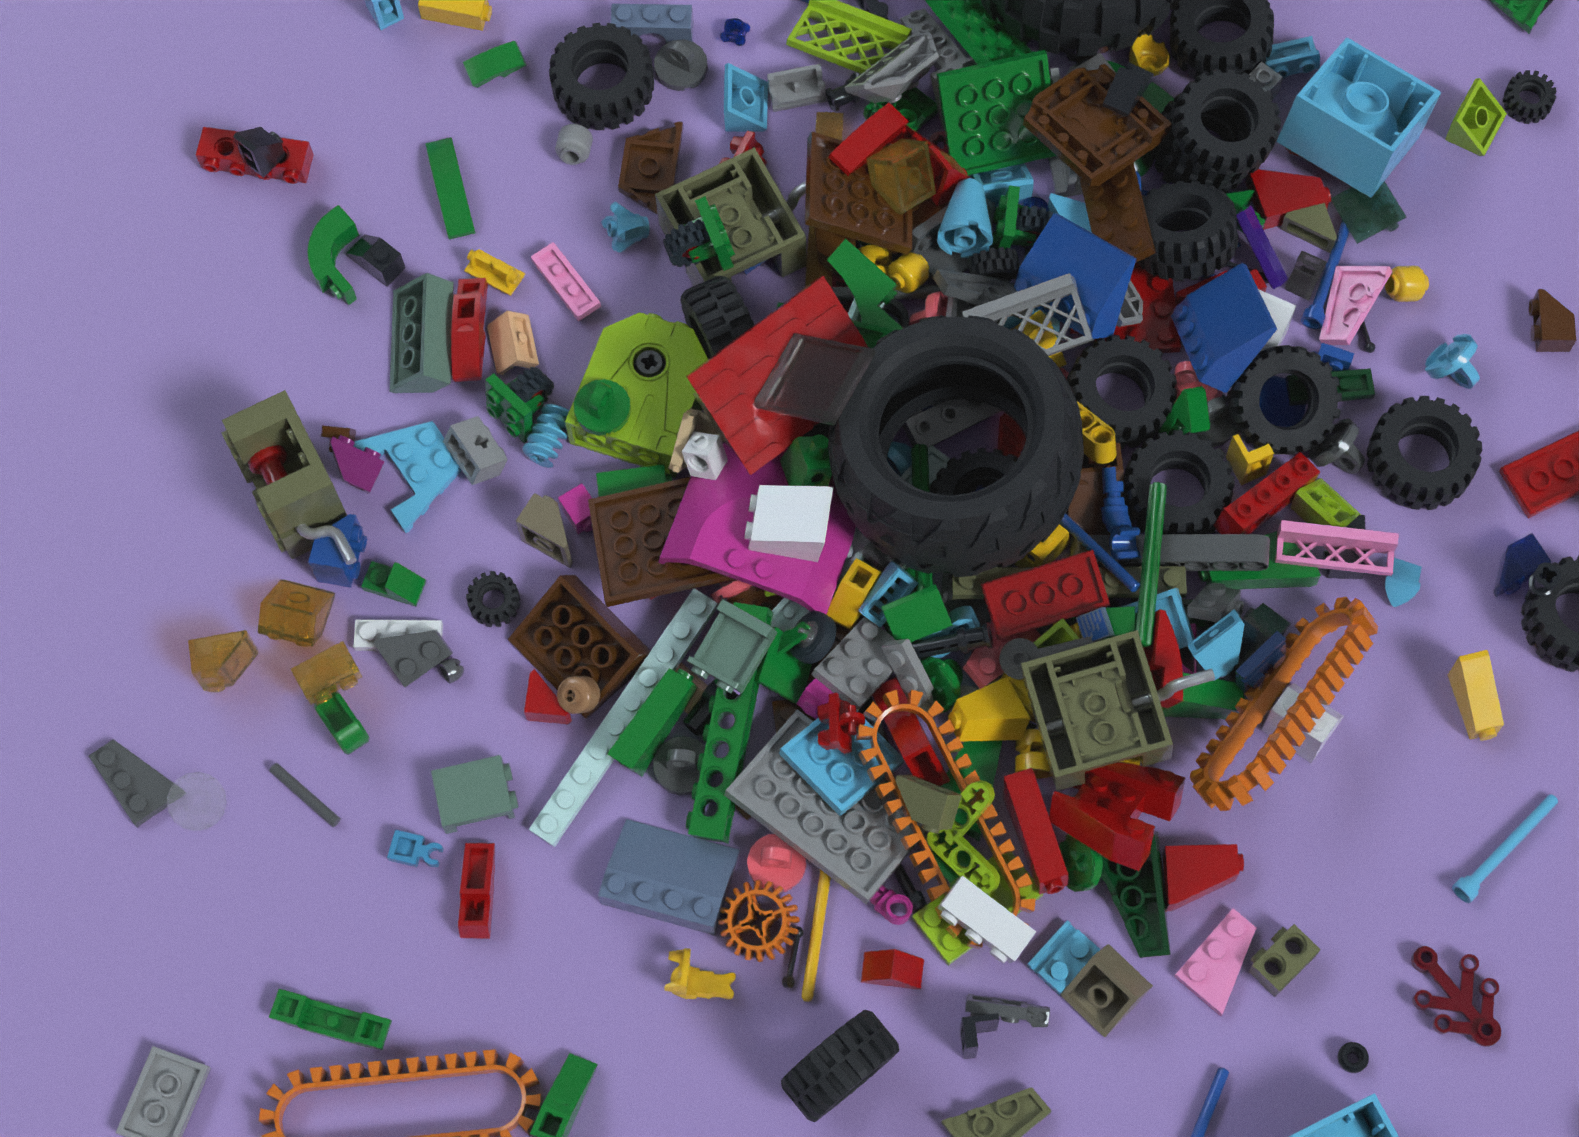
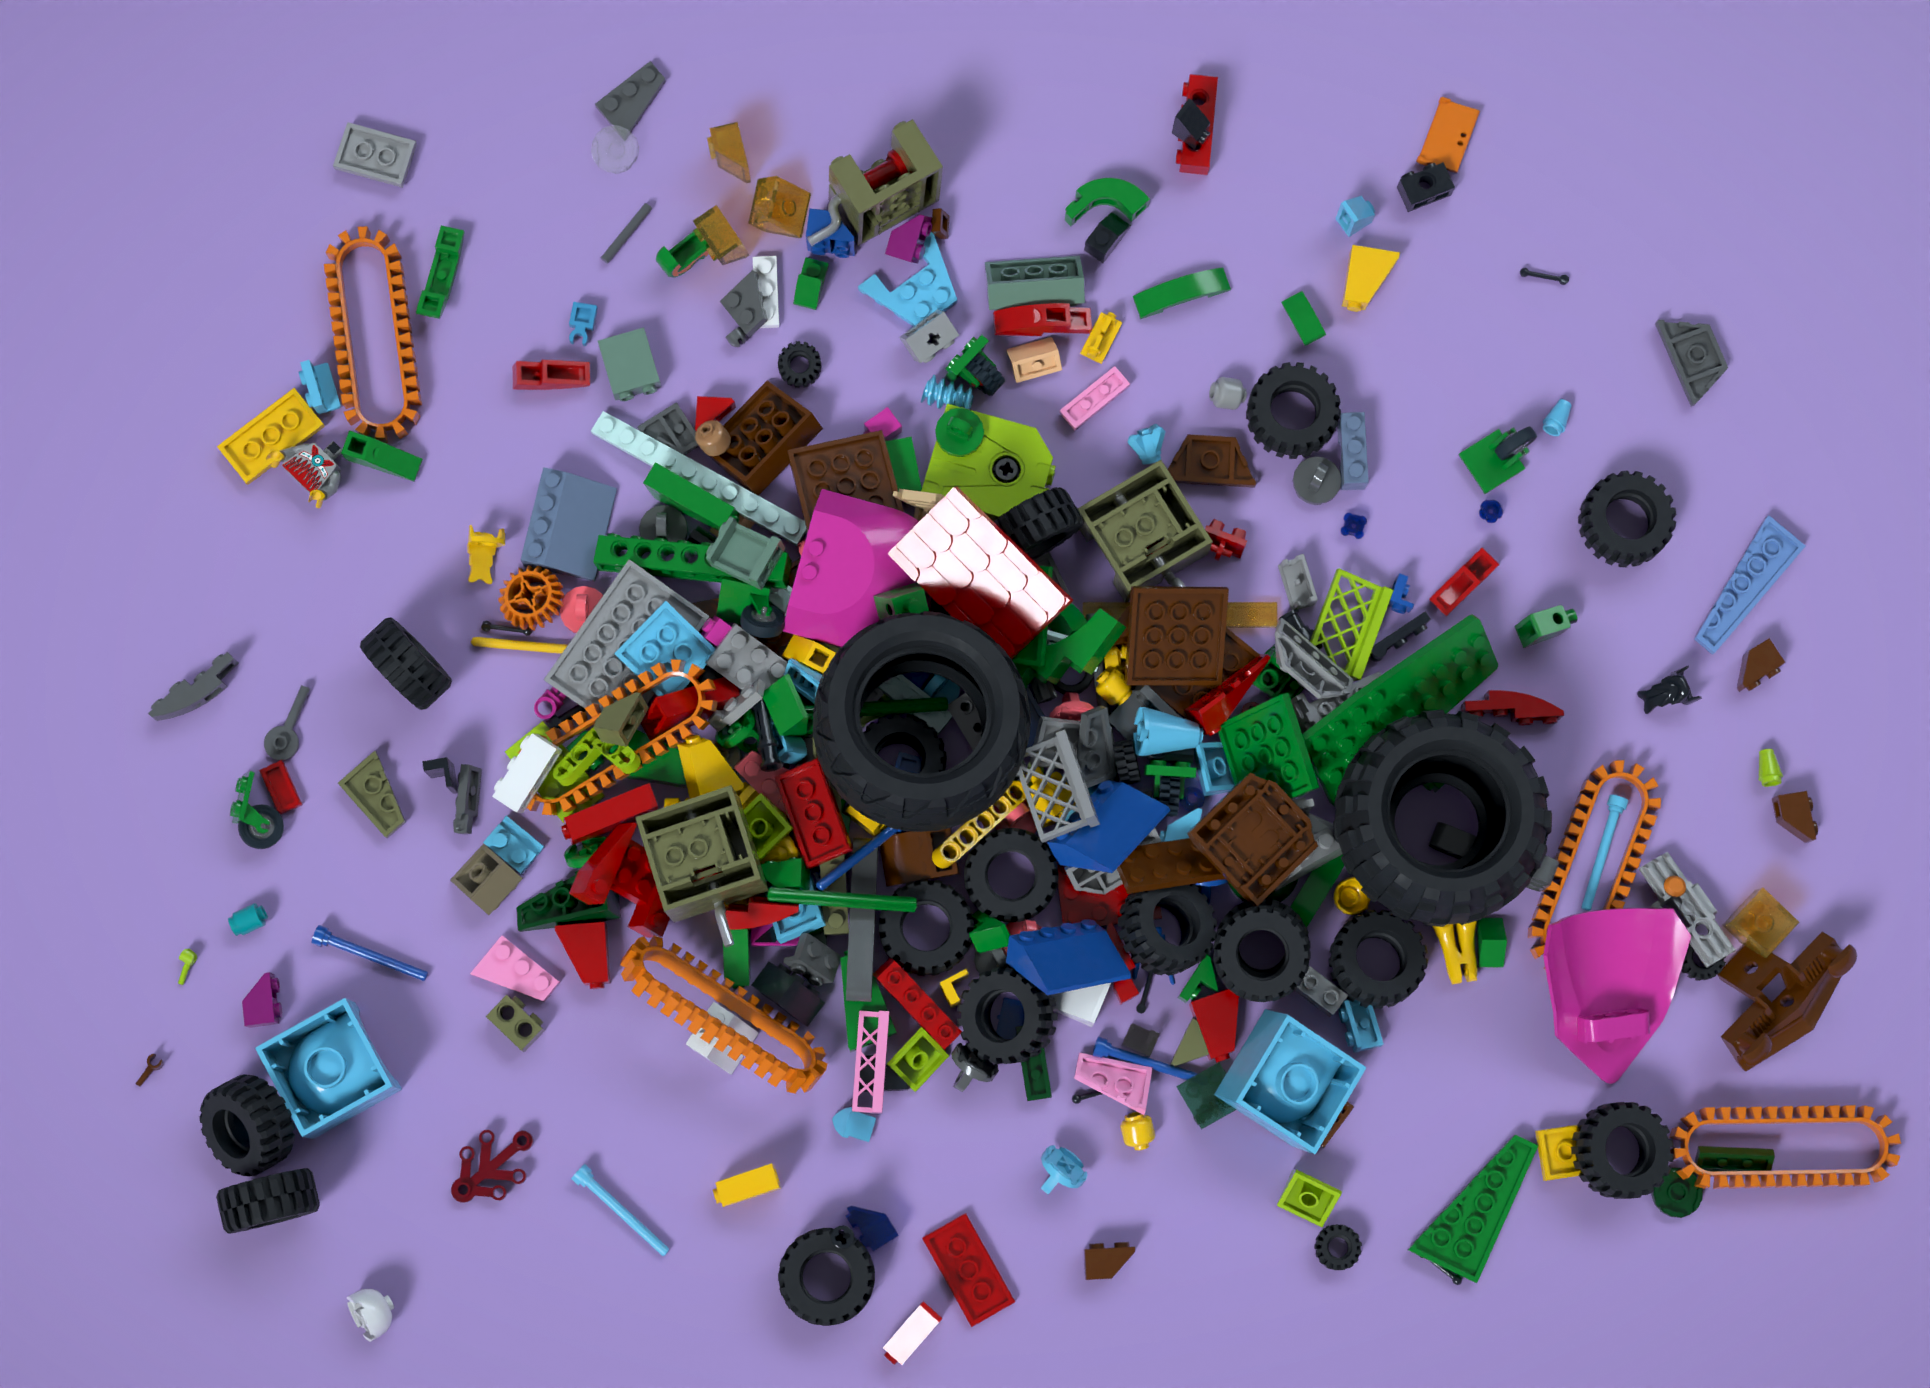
camera: 80 degrees right, 10 degrees up
(543, 528) = (858, 400): dark tan slope -> none
(560, 747) = (671, 429): none -> dark grey wing
(700, 239) = (1110, 500): plate -> none
(704, 455) = (909, 515): white brick -> none
(744, 101) = (1281, 537): medium azure slope -> none
(789, 520) = (847, 587): white slope -> none
(814, 378) = (961, 594): clear smoke piece -> none
(842, 723) = (687, 647): red hips -> none
(868, 139) = (1226, 639): red slope -> none
(892, 969) = (498, 708): red slope -> none
(903, 174) = (1198, 672): clear yellow slope -> none
(1024, 650) = (757, 797): dark grey piece -> none
(1095, 625) = (785, 855): tile -> none
(1117, 519) = (885, 873): blue piece -> none
(1127, 89) = (1288, 865): black slope -> none
(1219, 645) = (771, 957): medium azure slope -> none
(1261, 247) = (1160, 997): dark purple tile -> none
(1268, 655) = (752, 989): dark blue plate -> none
(1337, 358) = (1058, 1065): blue bracket -> none
(1359, 1051) = (430, 1080): black plate -> none
(1433, 420) = (1004, 1132): black tyre -> none

